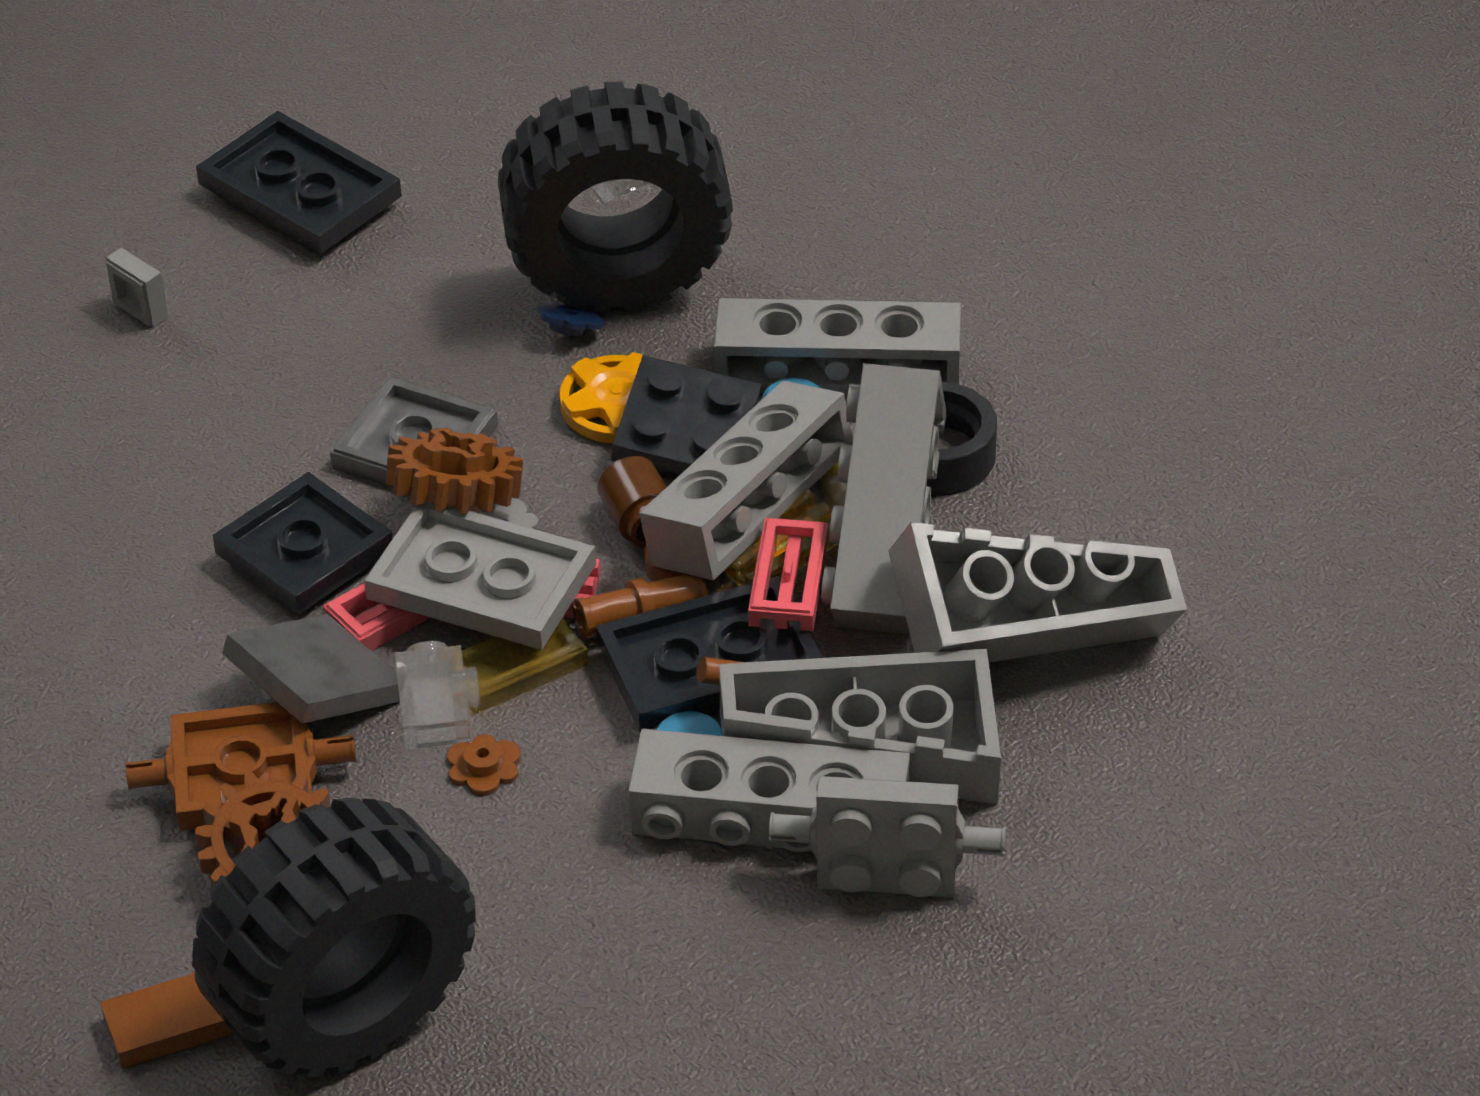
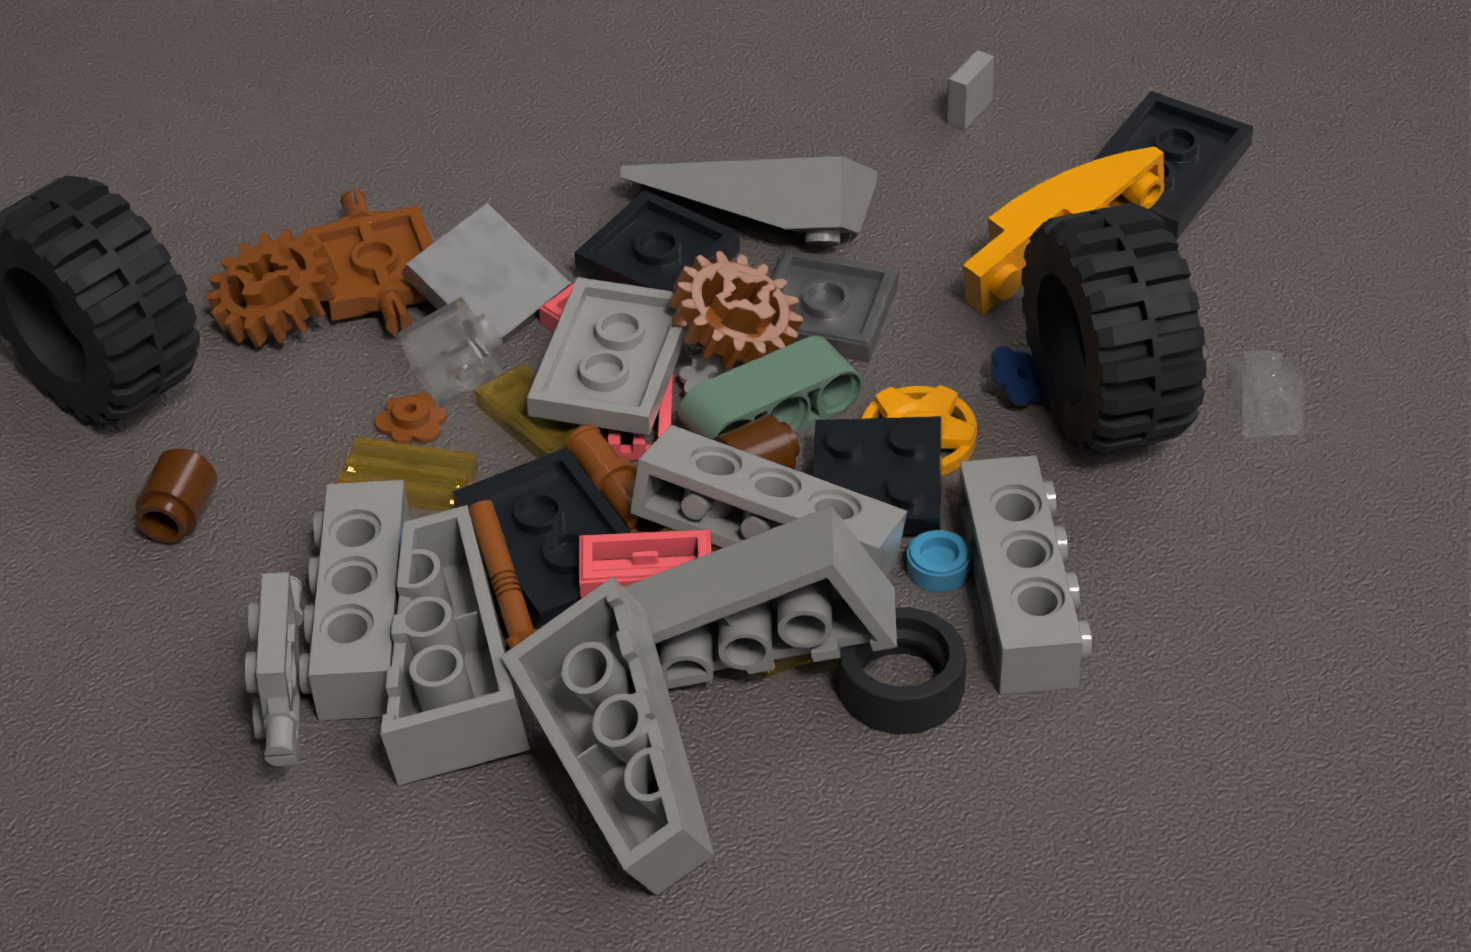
camera: 80 degrees right, 0 degrees up
(252, 432) = (797, 194): none -> light grey wedge
(386, 251) = (1102, 183): none -> light orange slope
(548, 768) = (414, 466): none -> clear yellow tile
(560, 478) = (791, 384): none -> sand green beam
(577, 939) = (175, 495): none -> reddish brown brick

